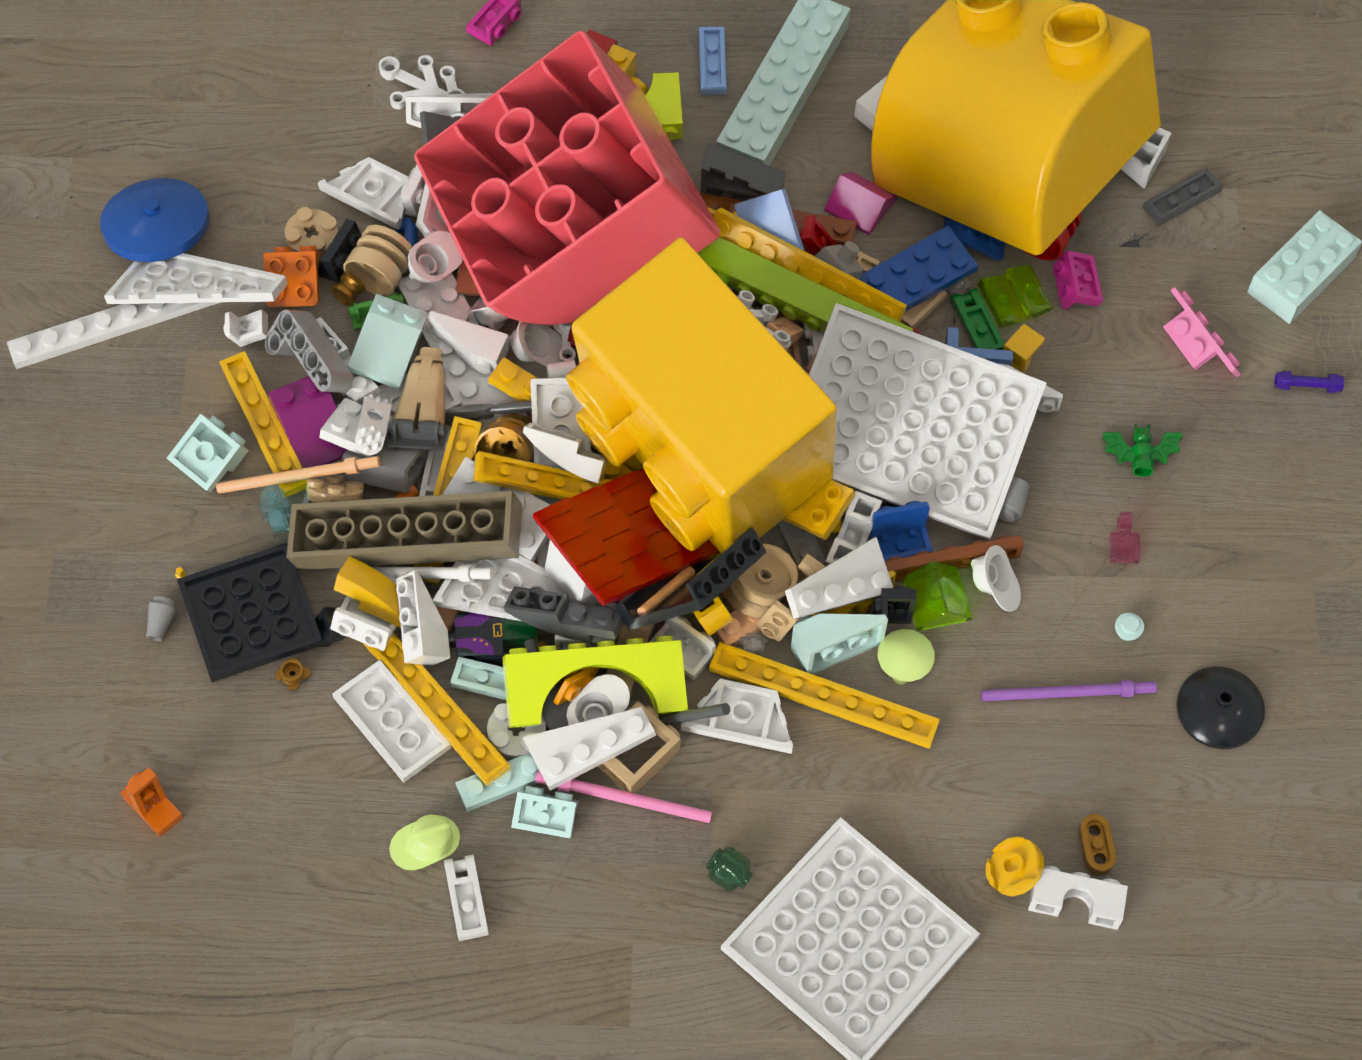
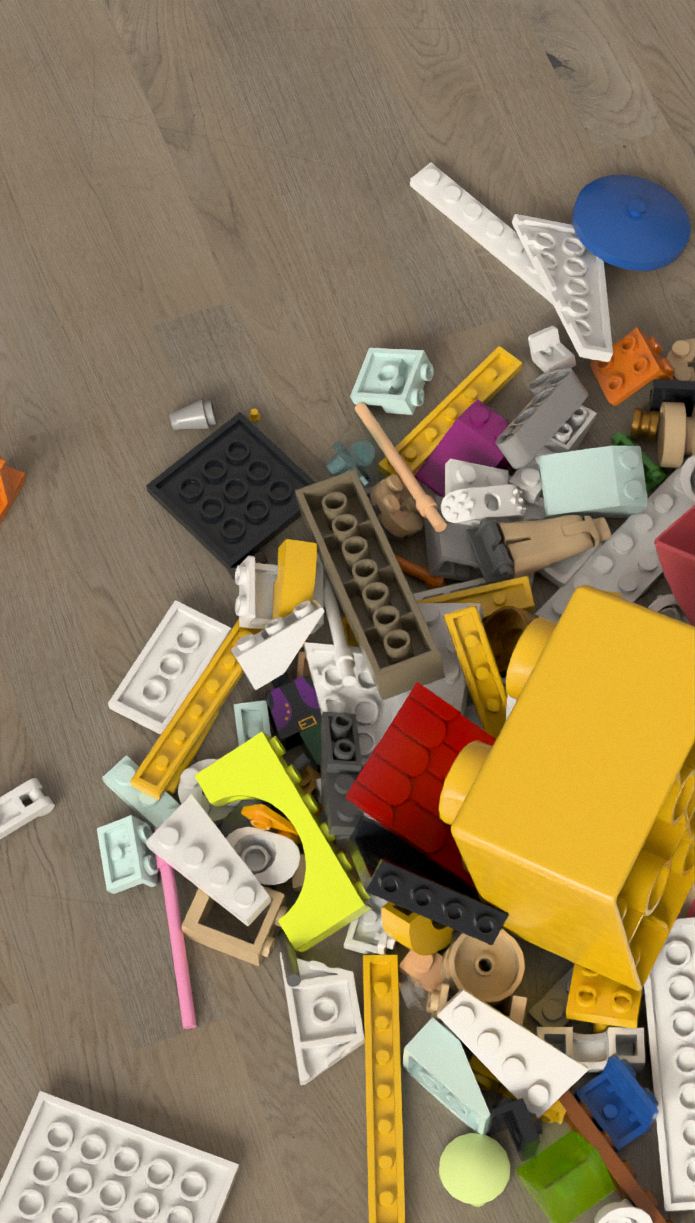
camera: 70 degrees right, 0 degrees up
(289, 666) = (182, 550): pearl gold plate -> none
(424, 842) = (54, 755): yellowish green piece -> none
(475, 344) = (633, 565): white slope -> none
(485, 411) = (550, 593): dark grey piece -> none
(666, 591) = (380, 851): light nougat bar -> none
(729, 868) = (132, 1067): clear green head -> none

